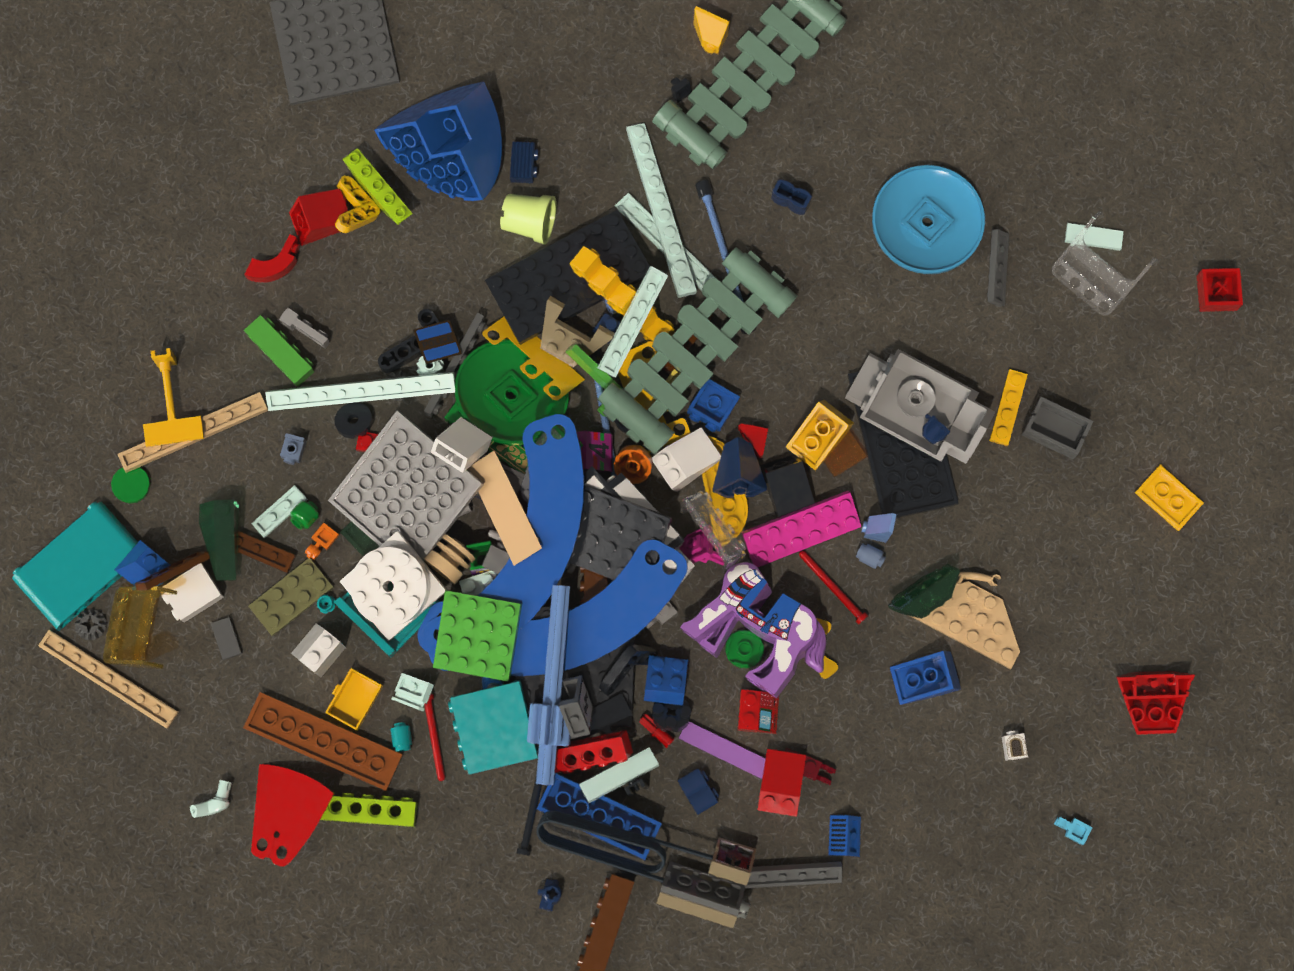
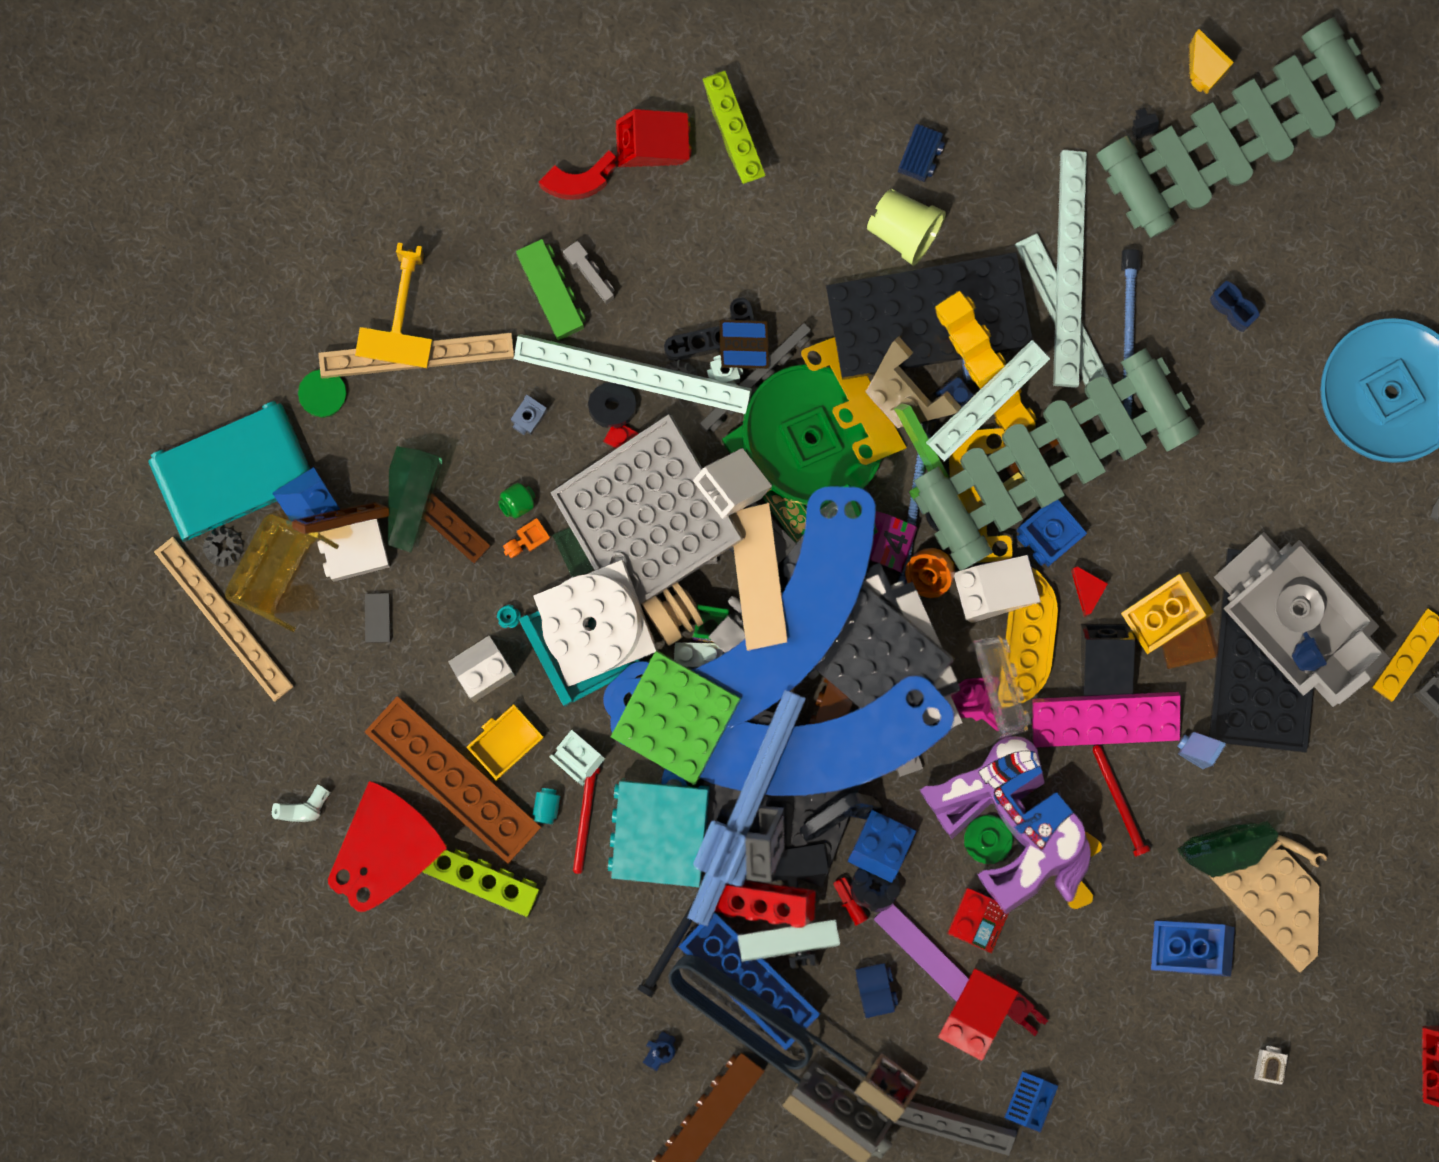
camera: 20 degrees right, 5 degrees up
(278, 511) = (487, 486): light aqua tile -> none
(290, 597) = (469, 594): olive plate -> none
(350, 189) = (705, 144): yellow beam -> none
(449, 141) = (839, 99): blue brick -> none
(739, 471) = (1054, 624): dark blue slope -> none
(870, 556) = (1178, 779): sand blue brick -> none

